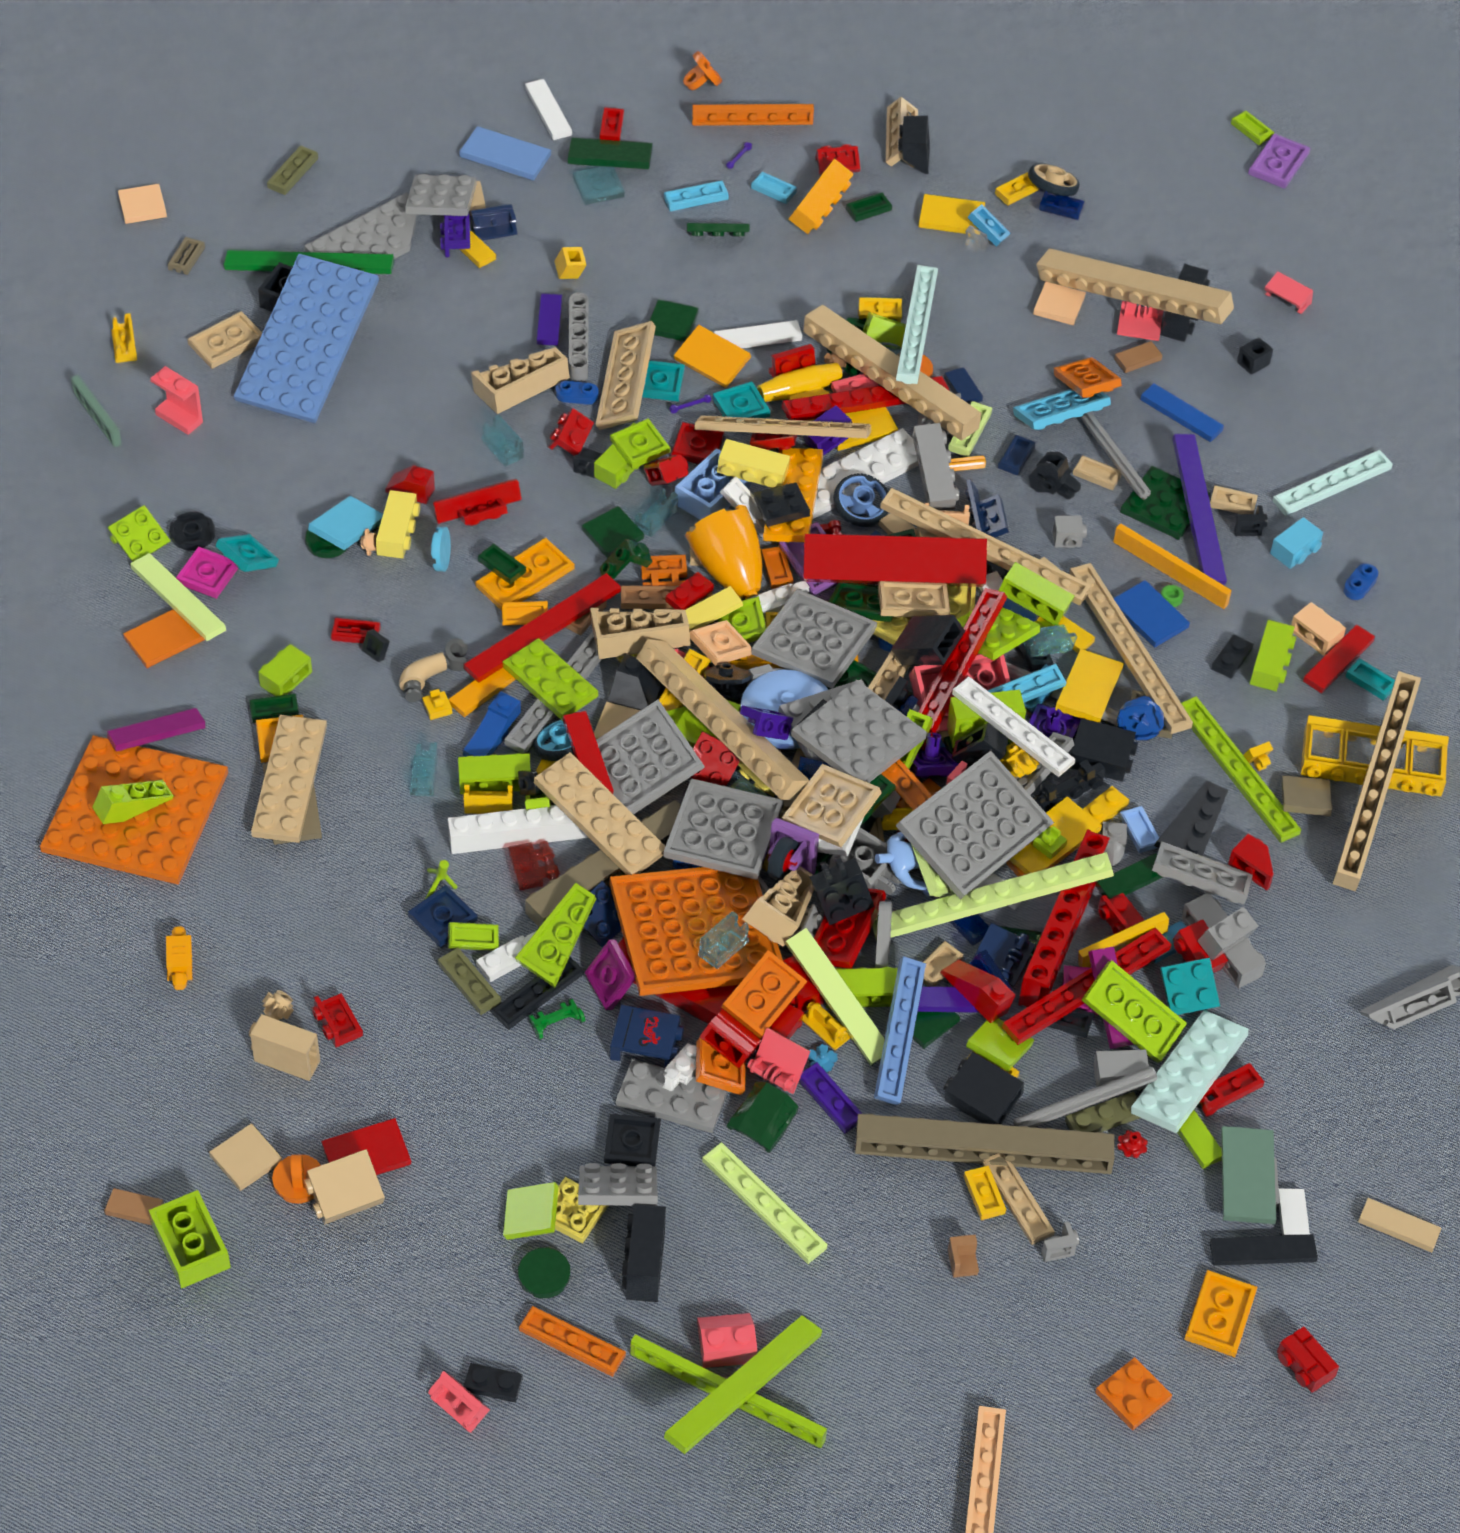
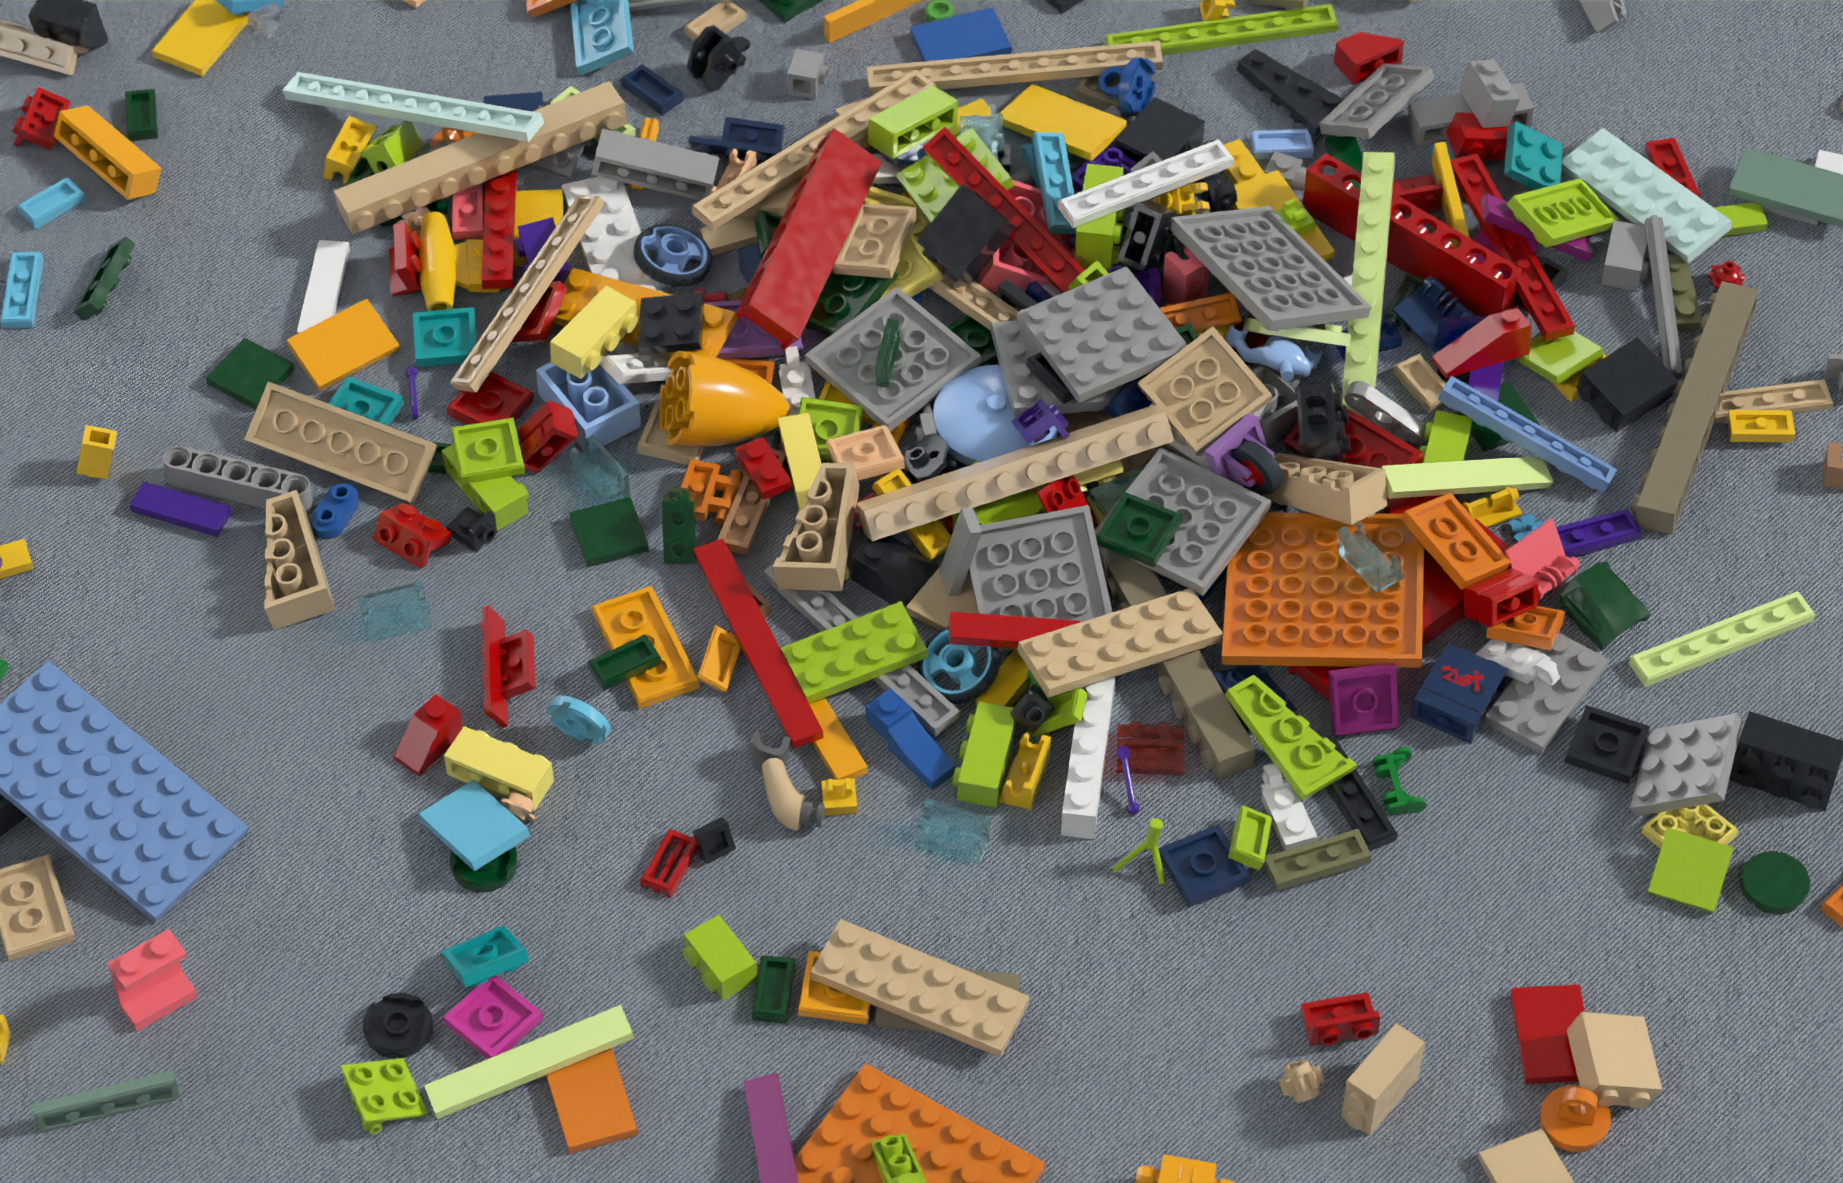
camera: 70 degrees left, 0 degrees up
(515, 845) = (1123, 753): none -> dark purple hinge
(639, 699) = (960, 551): none -> light grey tile
(700, 801) = (1139, 529): none -> dark green tile
(806, 626) = (888, 352): none -> clear green tile

